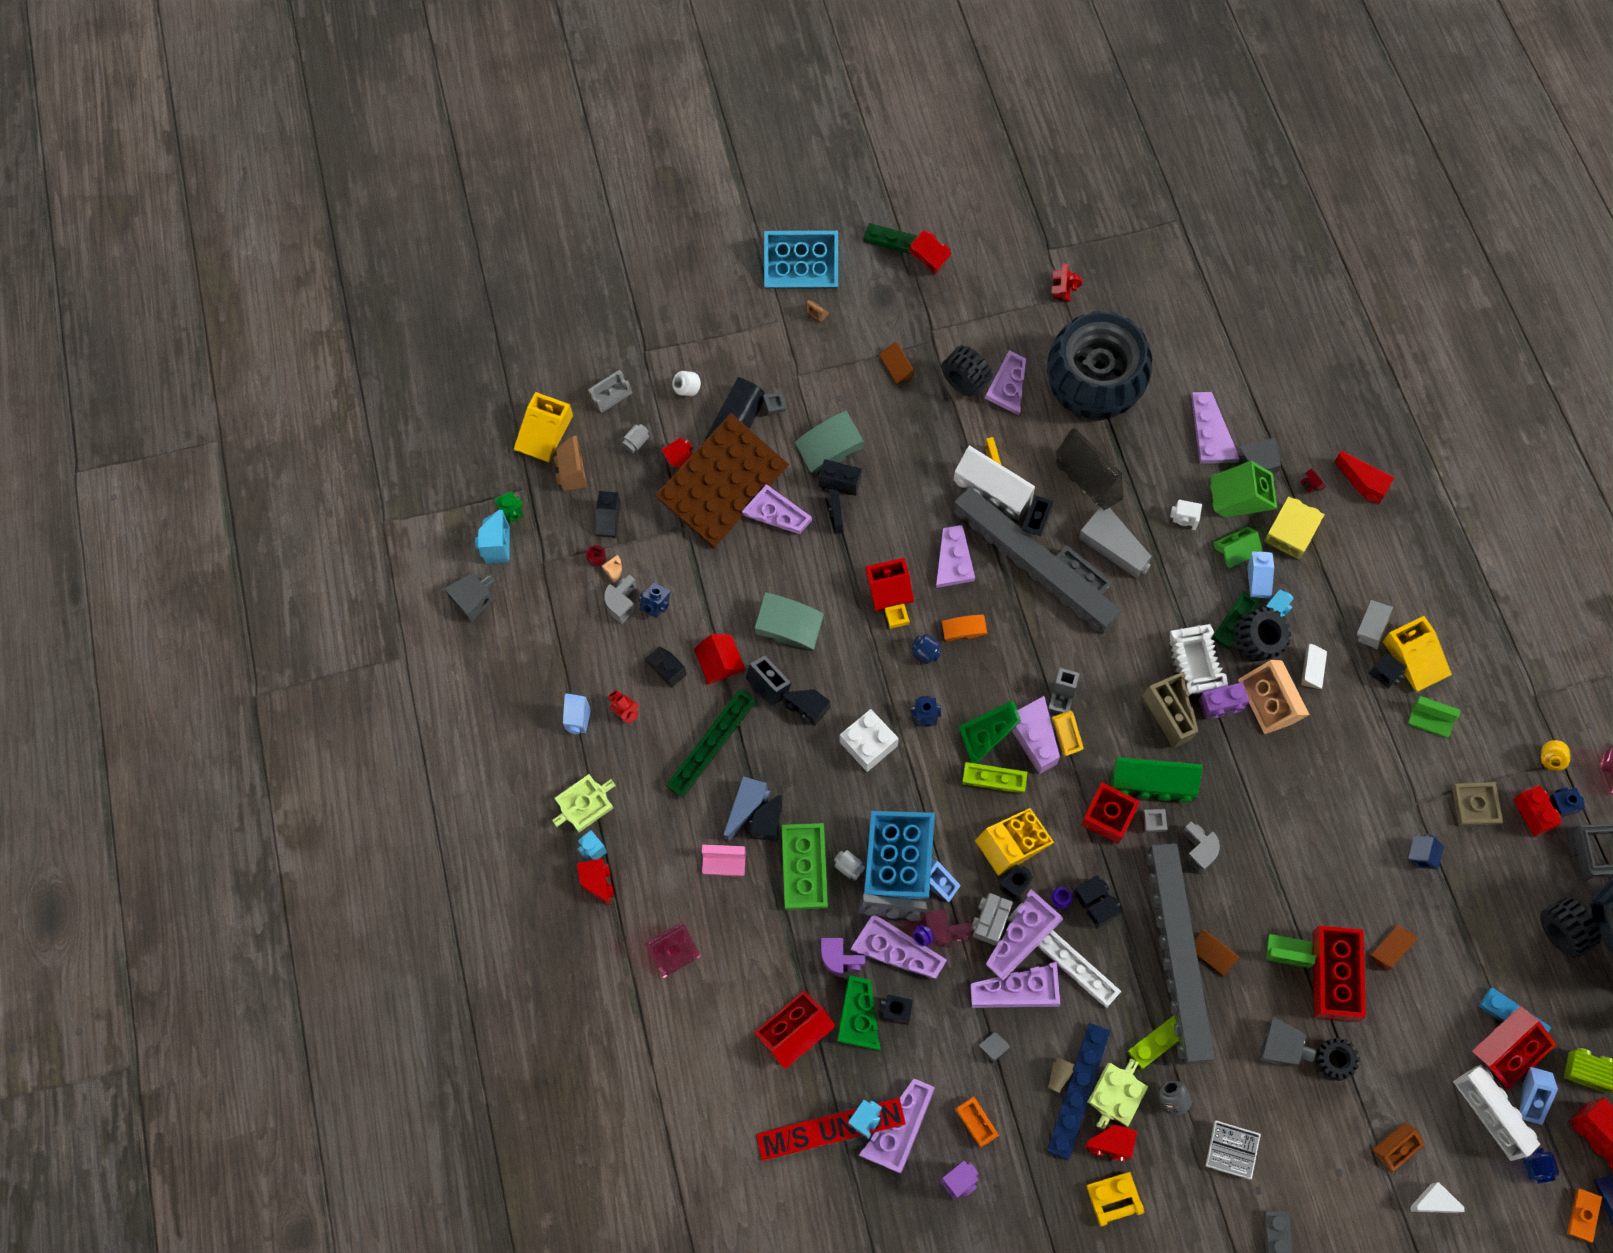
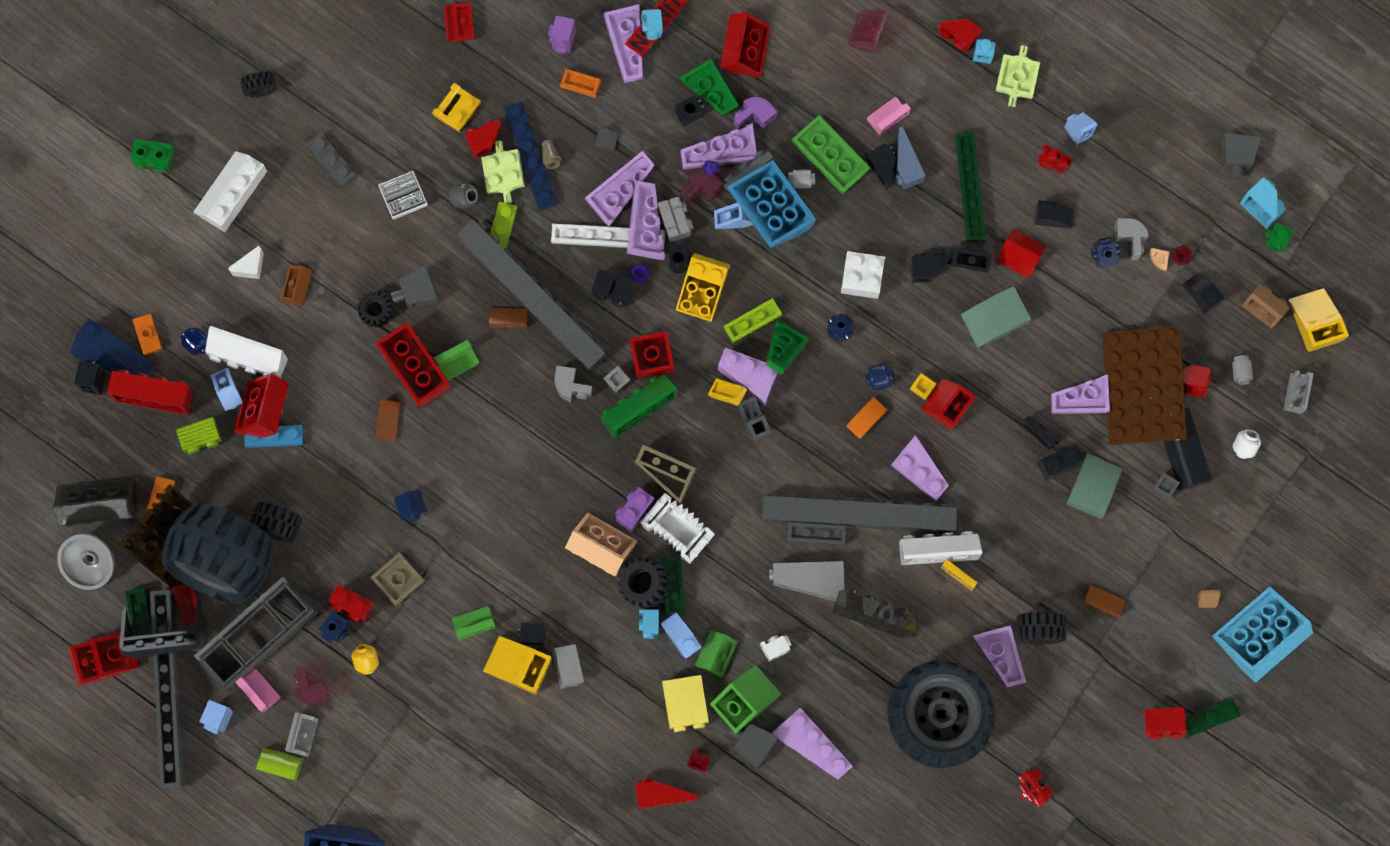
camera: 135 degrees right, 10 degrees up
(1038, 515) = (884, 546): black slope -> none
(1314, 667) = (588, 595): white slope -> none

